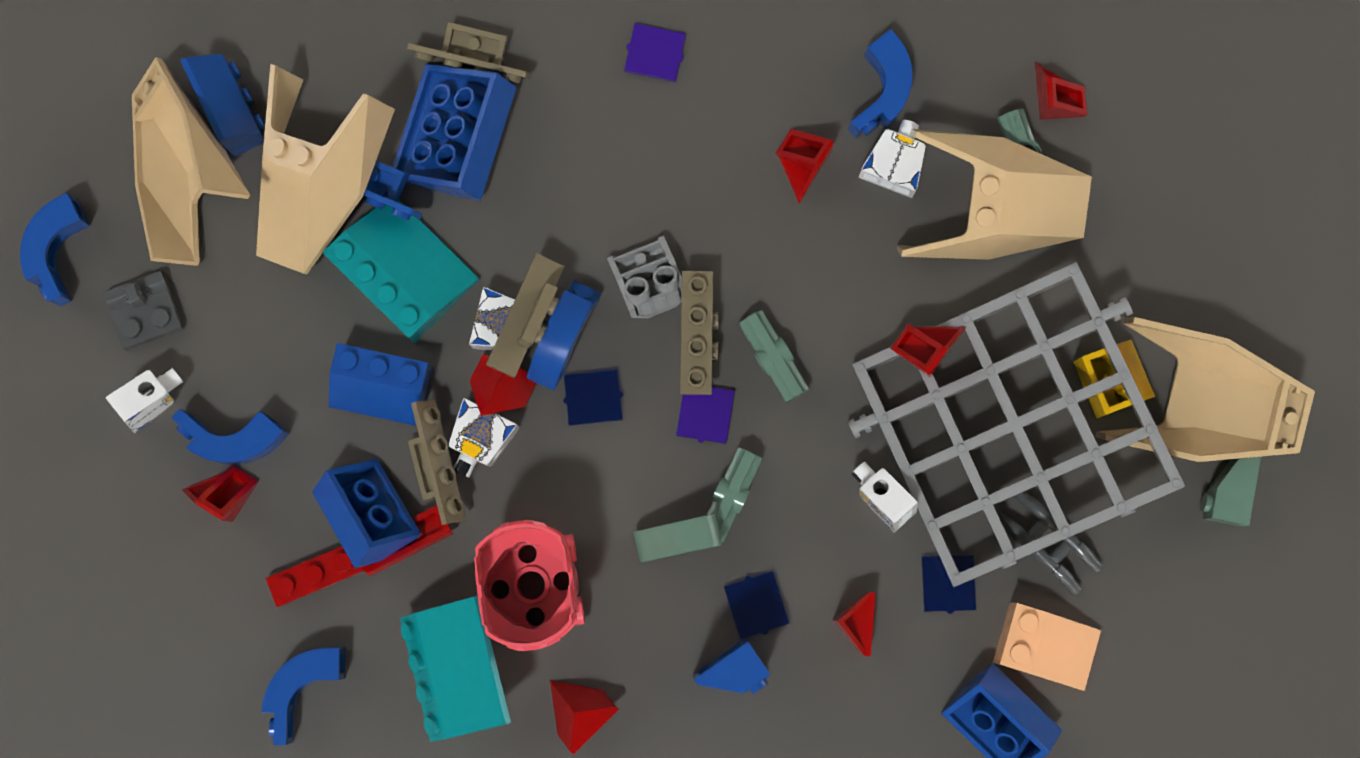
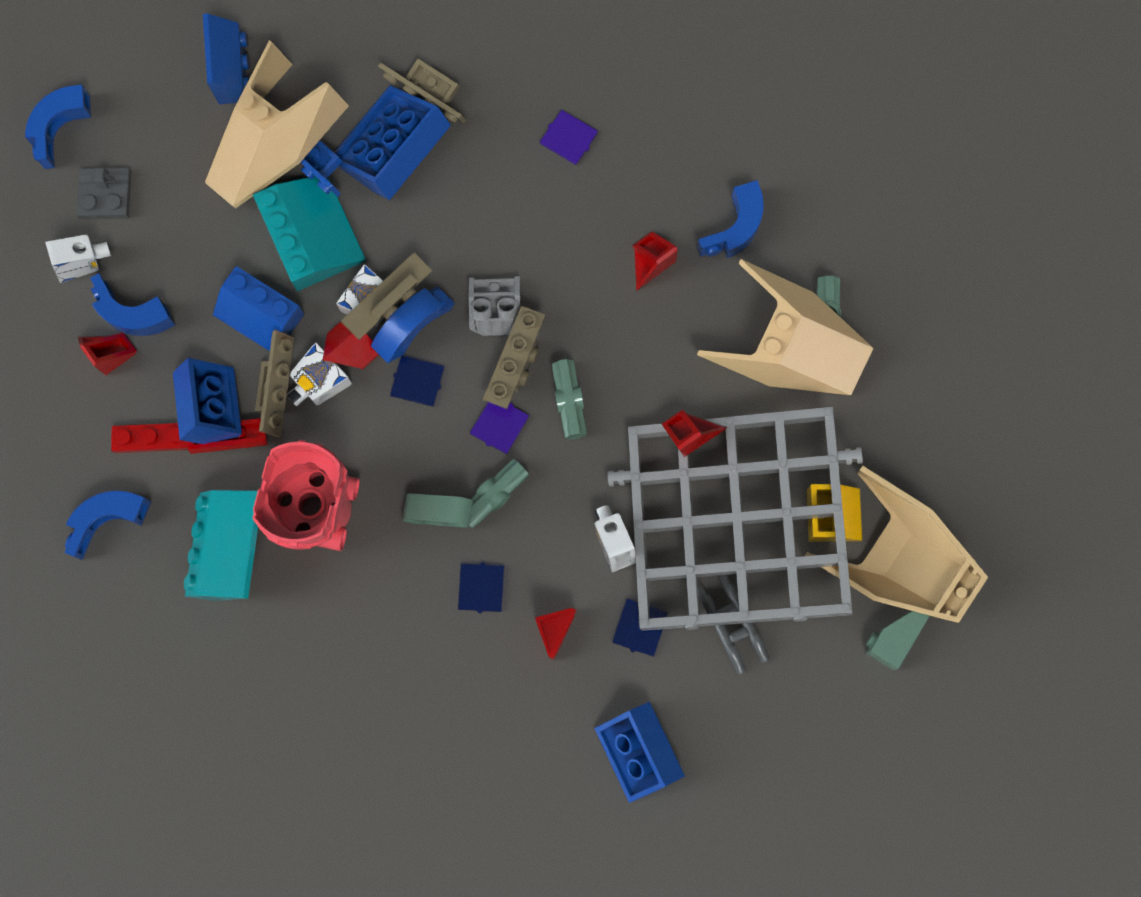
camera: 25 degrees right, 5 degrees down
(175, 164) = (169, 93): tan windscreen -> none
(579, 712) = (309, 618): red slope -> none
(734, 670) = (440, 625): blue slope -> none
(896, 160) = (722, 283): white torso -> none
(1047, 646) = (700, 706): light nougat slope -> none
(1058, 97) = (874, 280): red slope -> none

